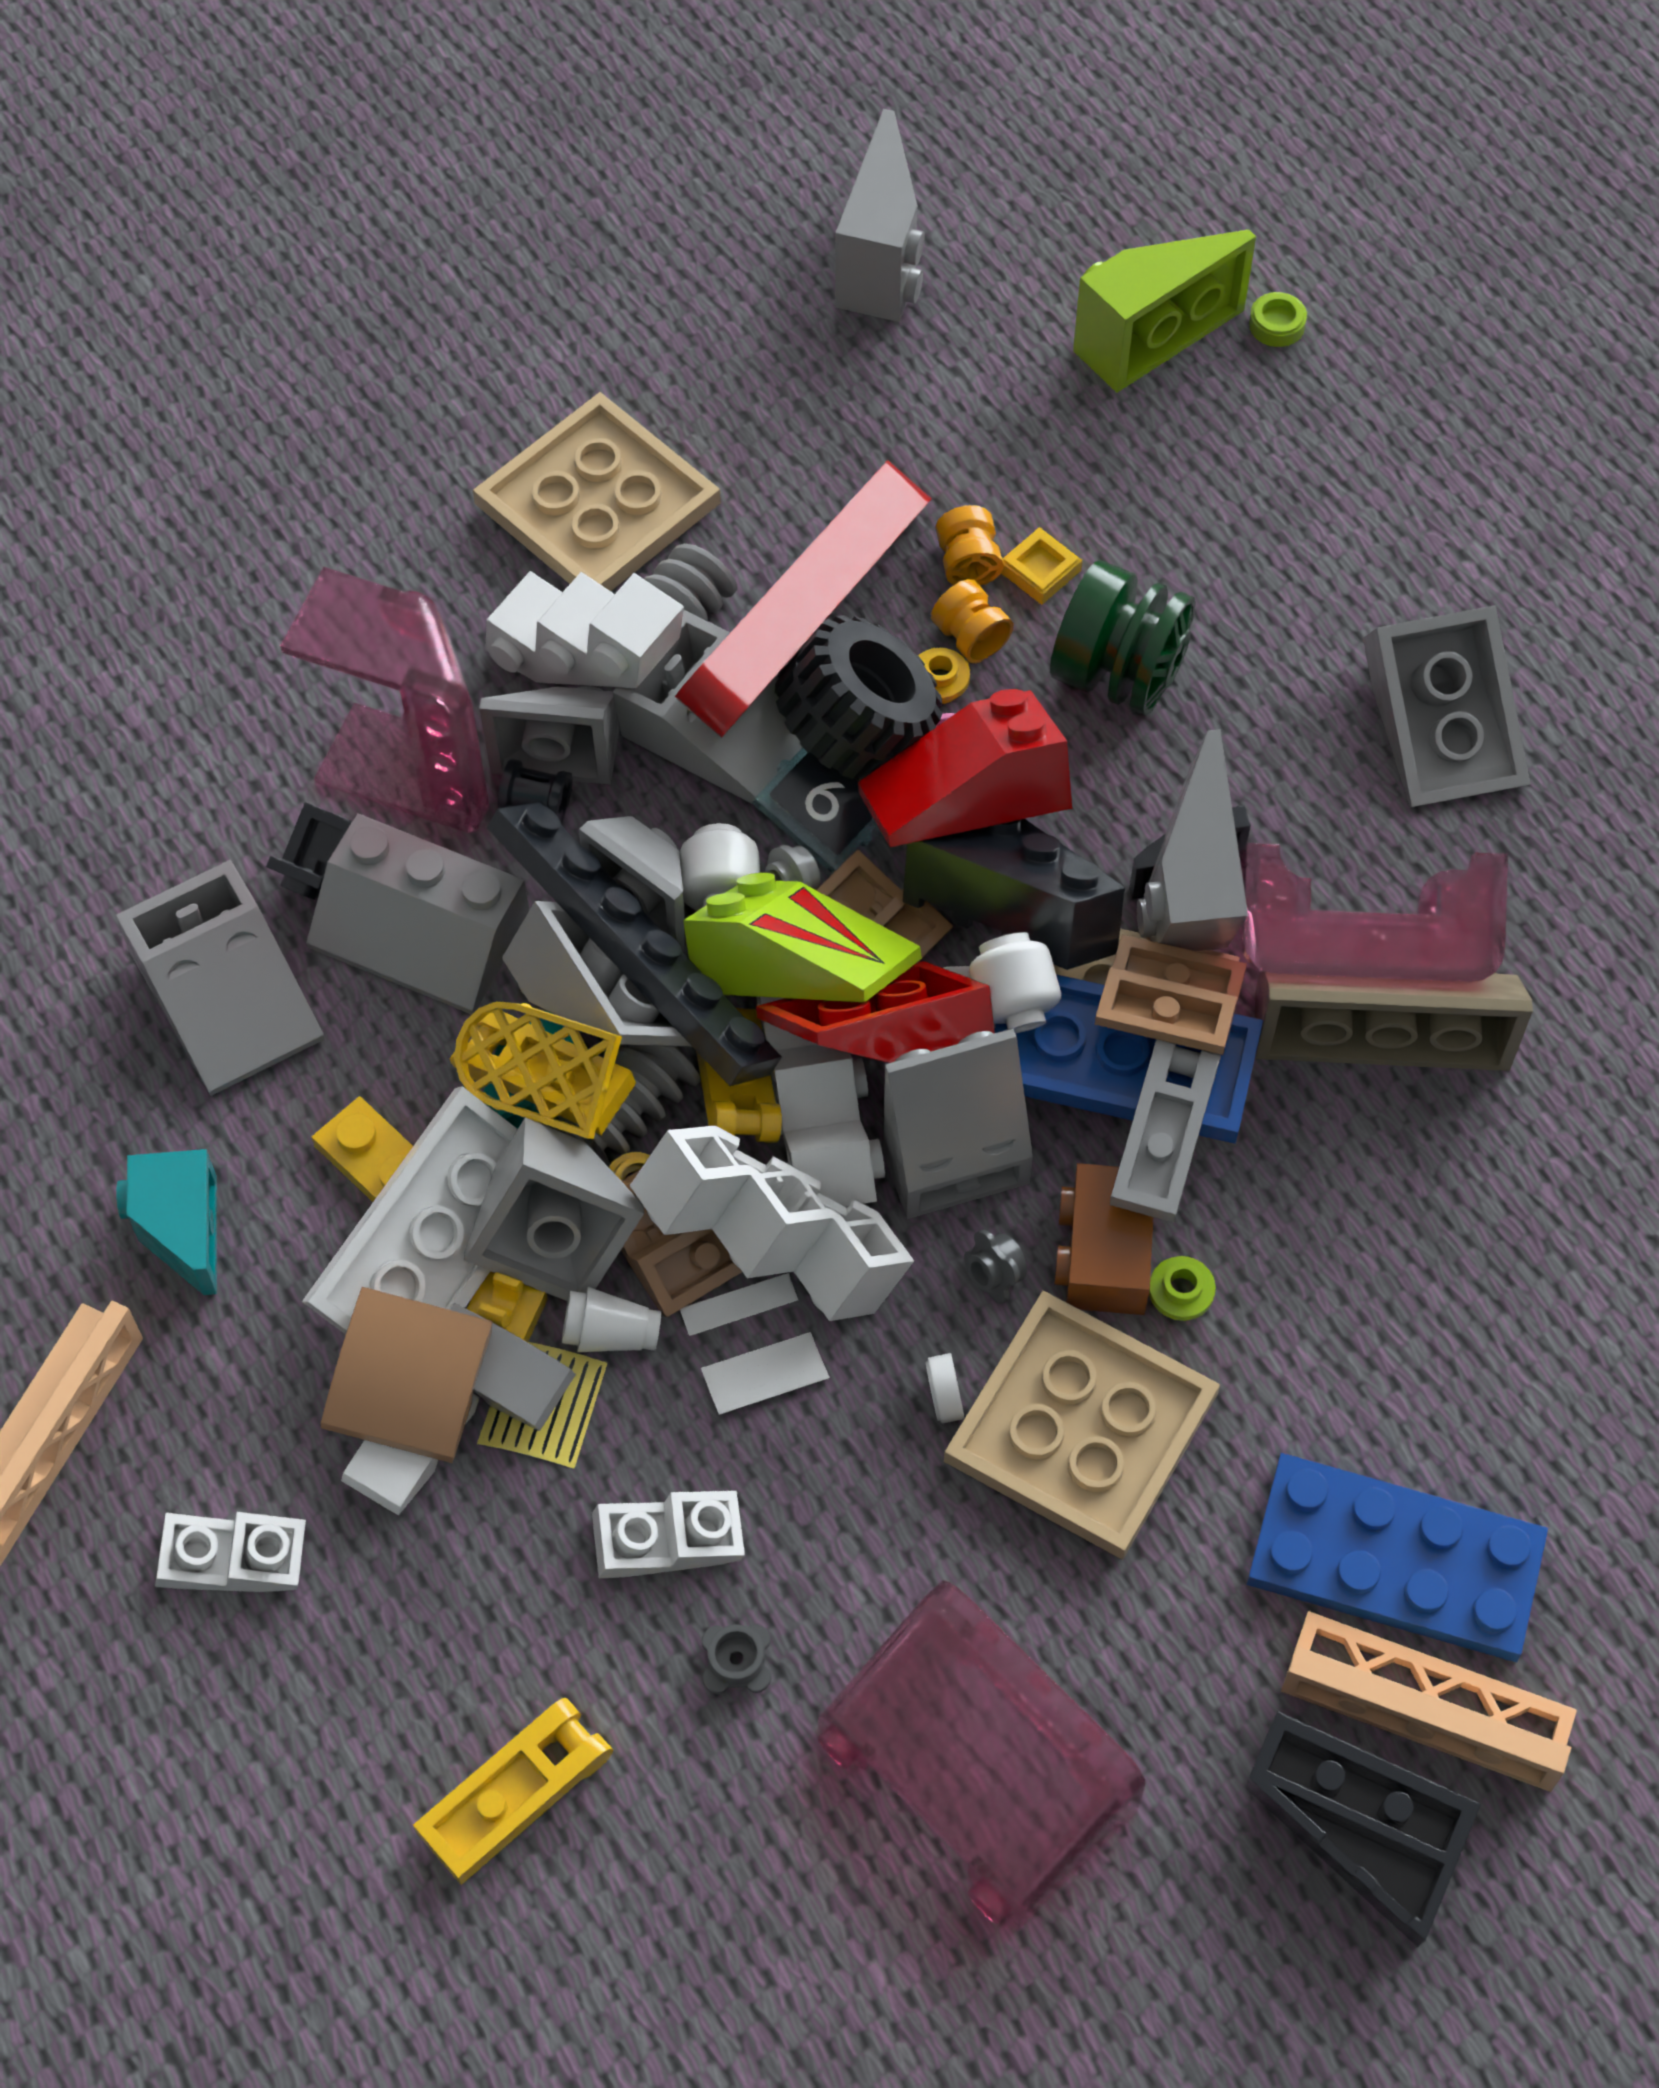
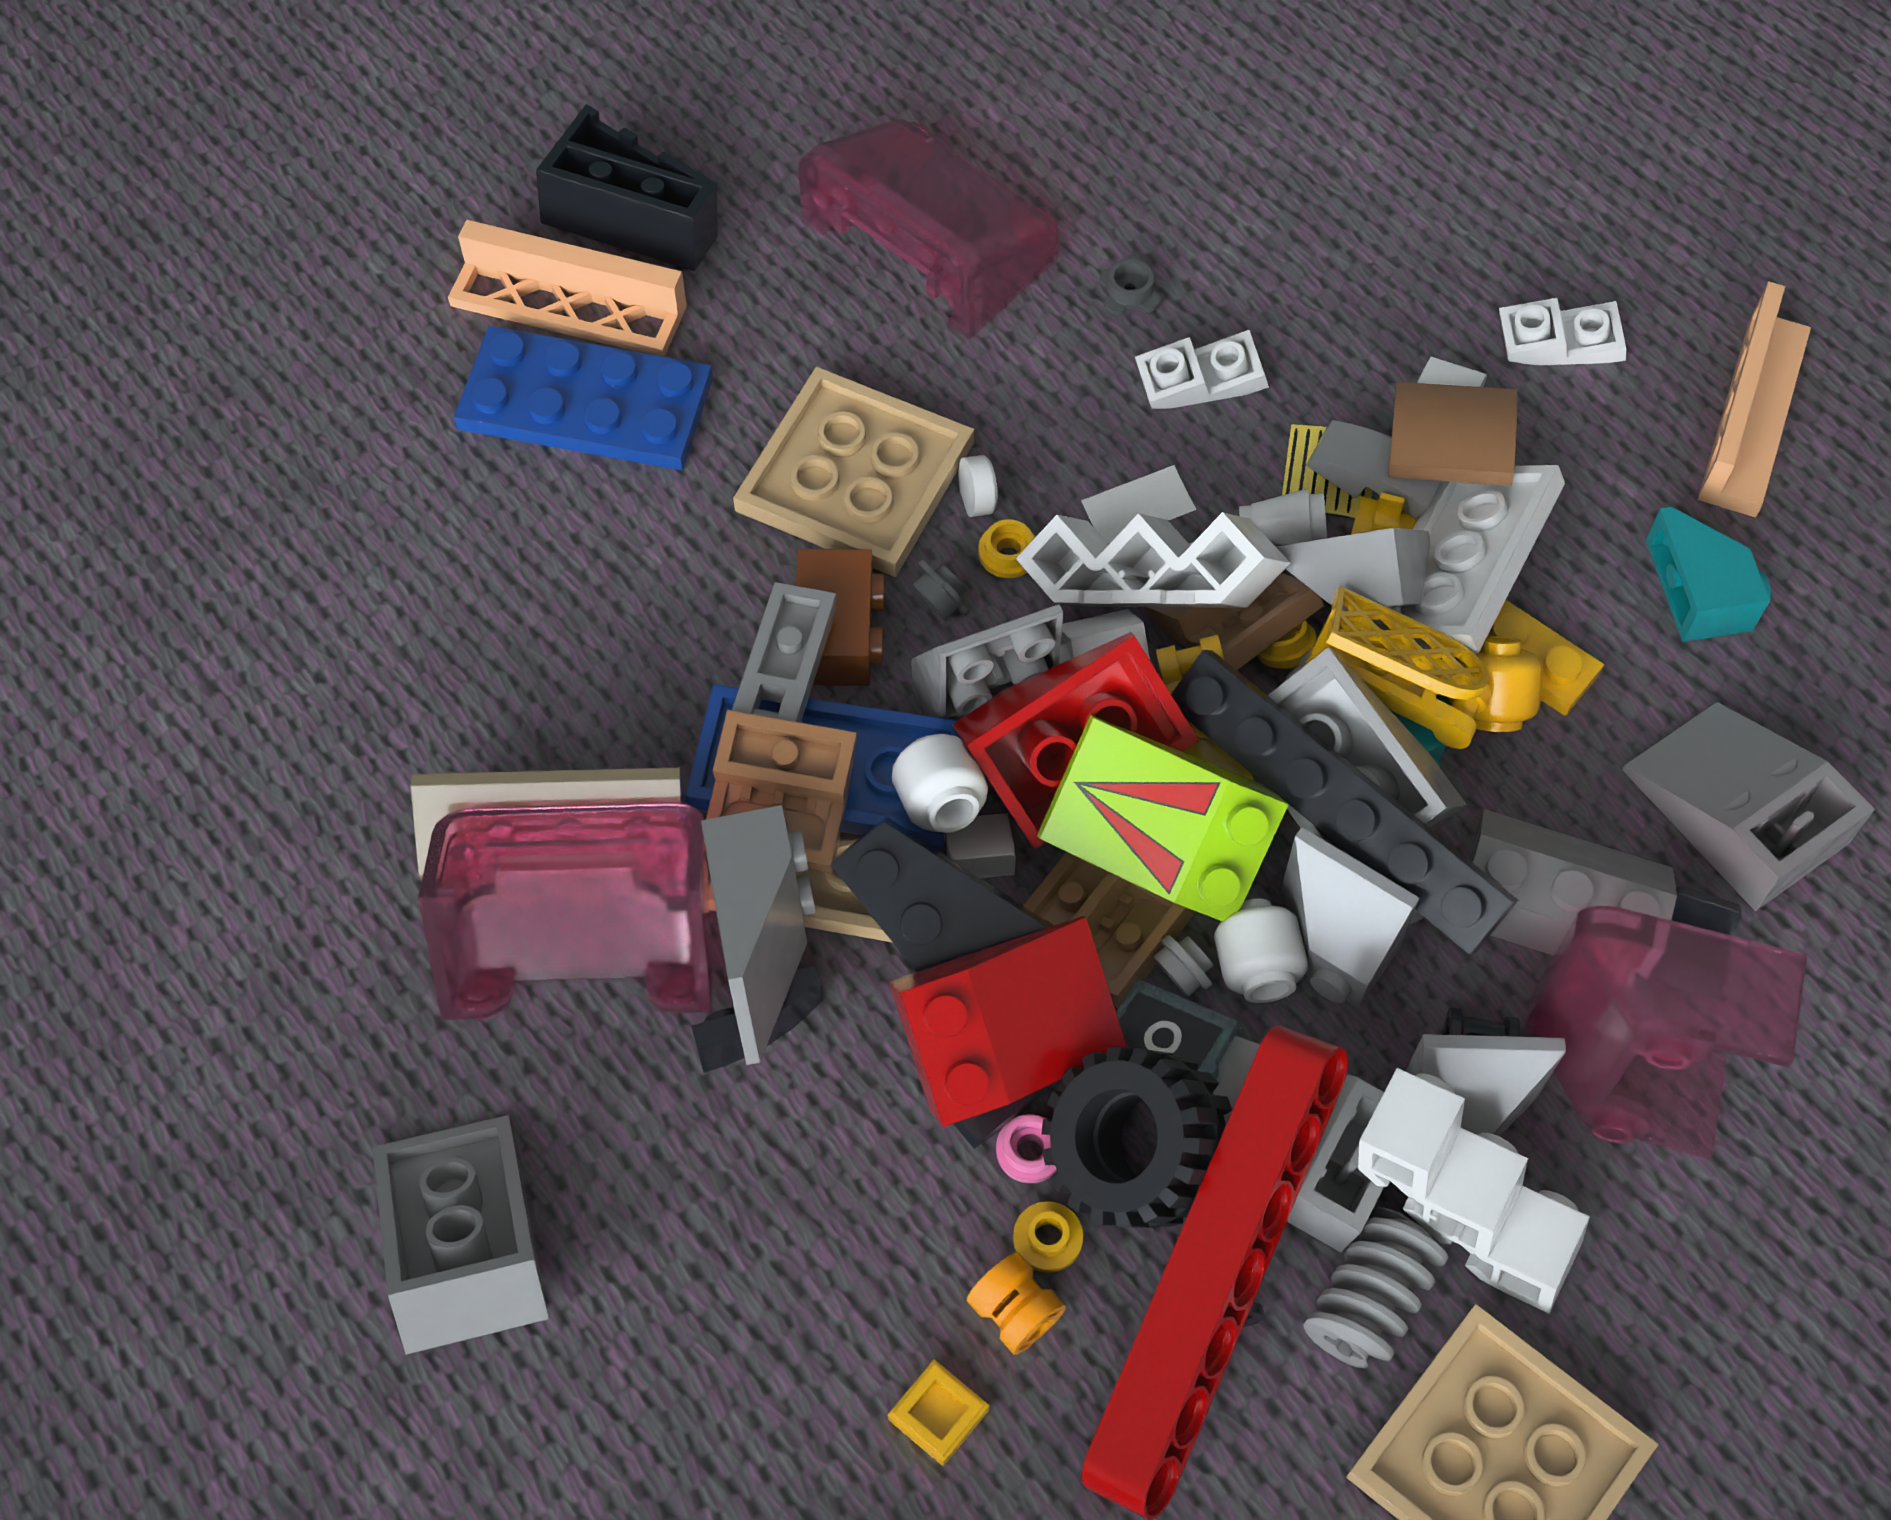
camera: 175 degrees right, 0 degrees up
(419, 1095) = (1514, 683): none -> yellow head
(511, 1791) = (1289, 189): yellow plate -> none
(922, 1301) = (1001, 535): none -> yellow plate
(969, 546) = (1028, 1413): light orange wheel -> none
(1114, 634) = (825, 1253): dark green wheel -> none
(1176, 1304) = (750, 598): lime plate -> none

